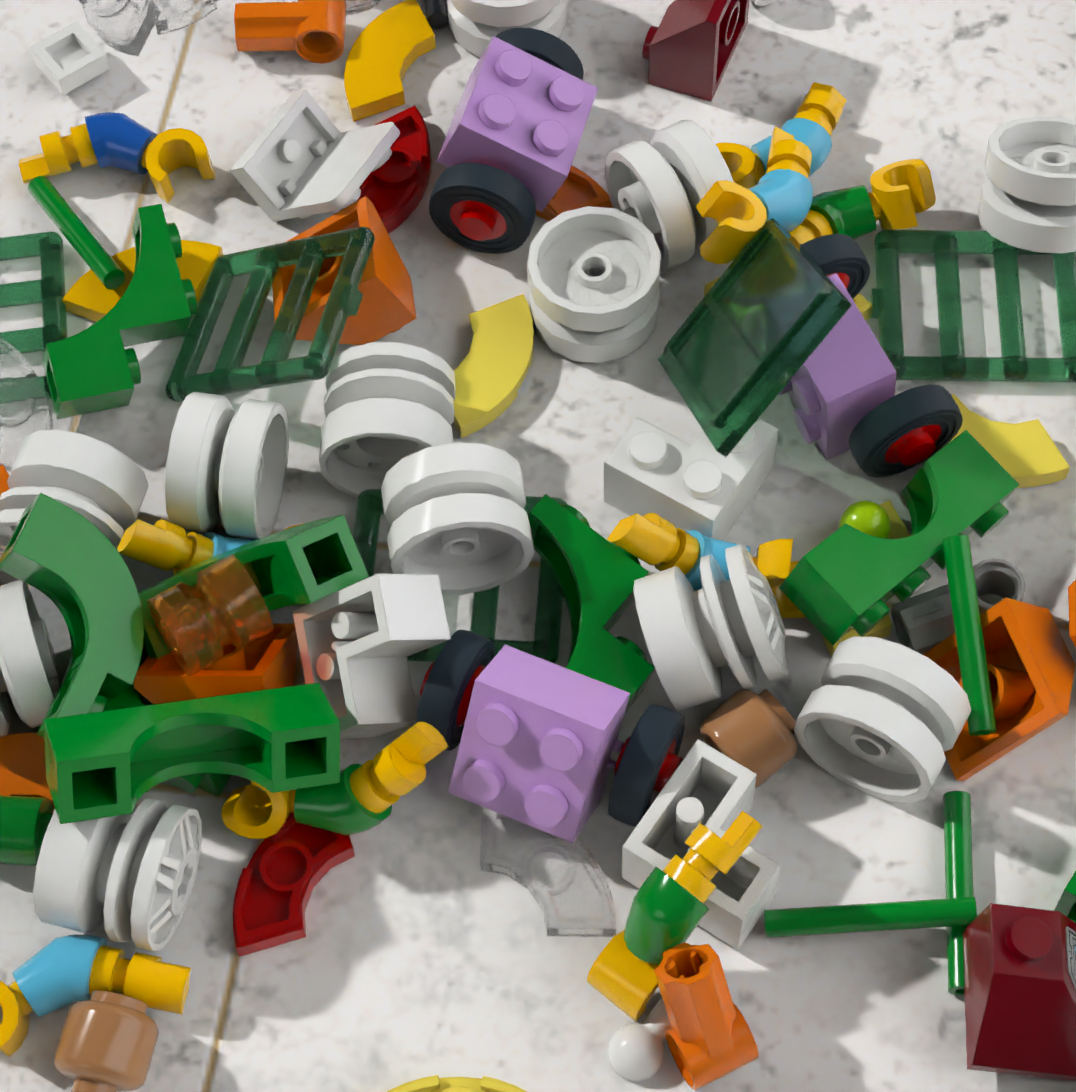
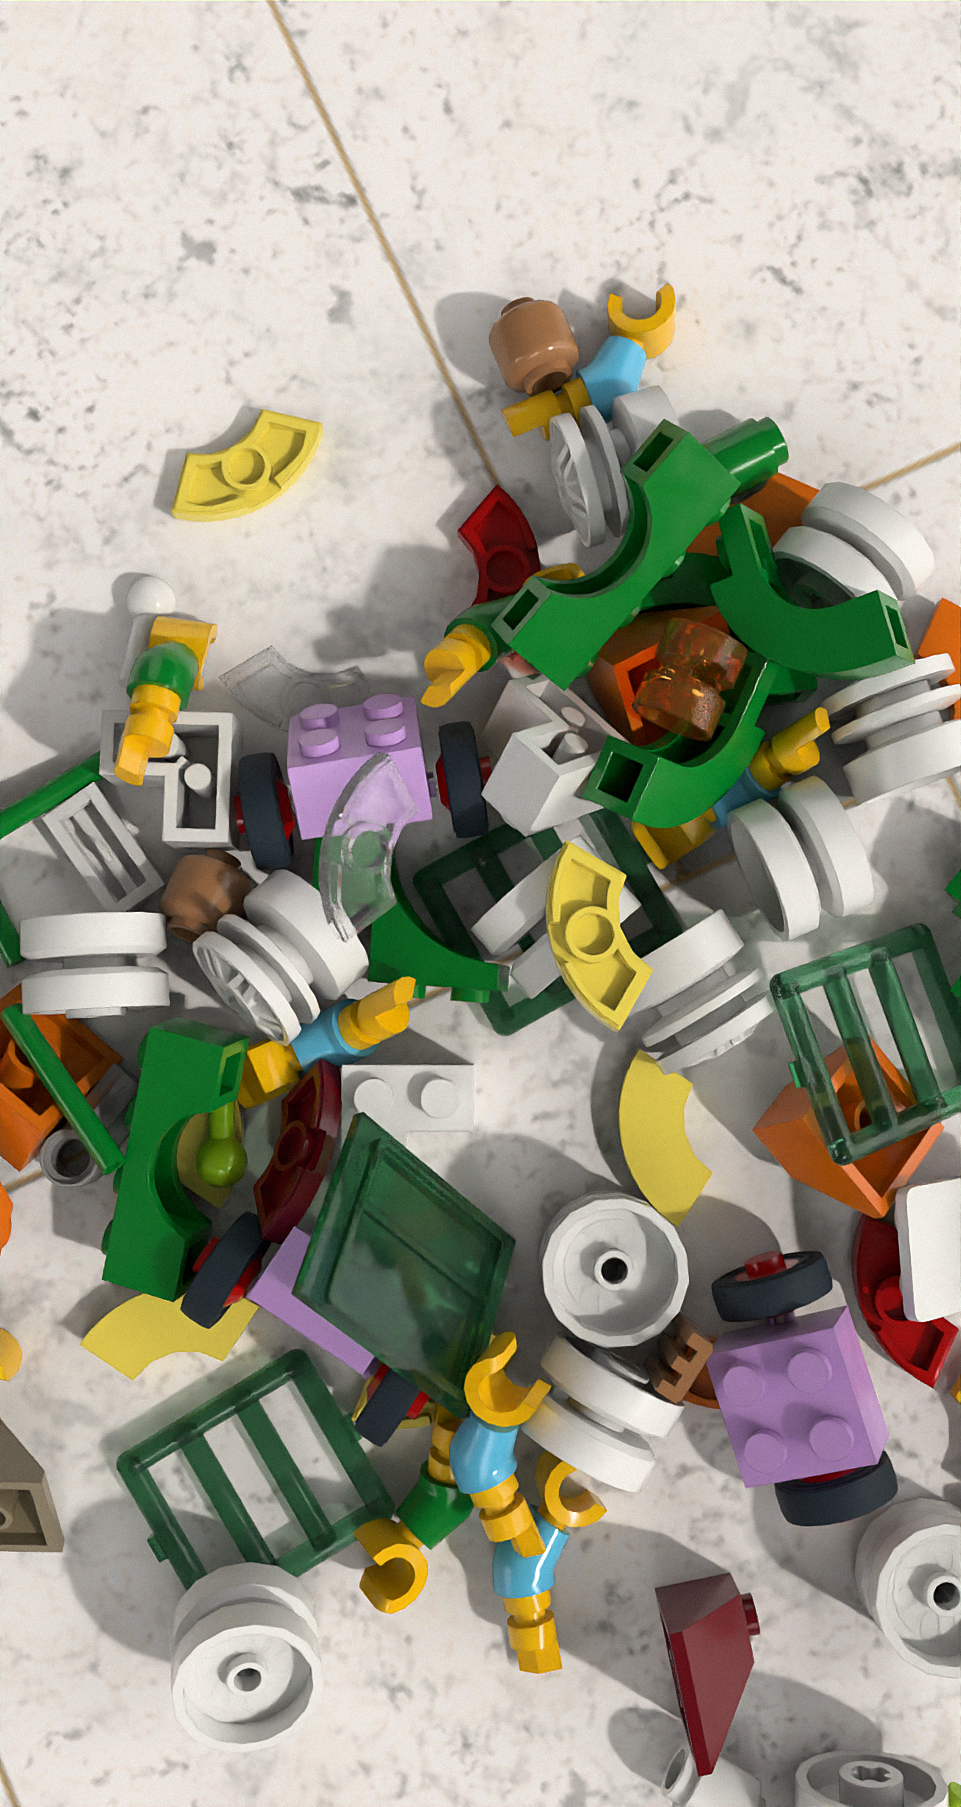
camera: 145 degrees right, 25 degrees up
(443, 449) = (588, 936): none -> light yellow tile
(581, 635) = (360, 846): none -> clear tile
(586, 164) = (661, 1371): none -> medium nougat tile
(707, 1027) = (99, 633): orange piece -> none
(788, 477) = (301, 1153): none -> dark red tile
(813, 786) = (75, 806): none -> white tile

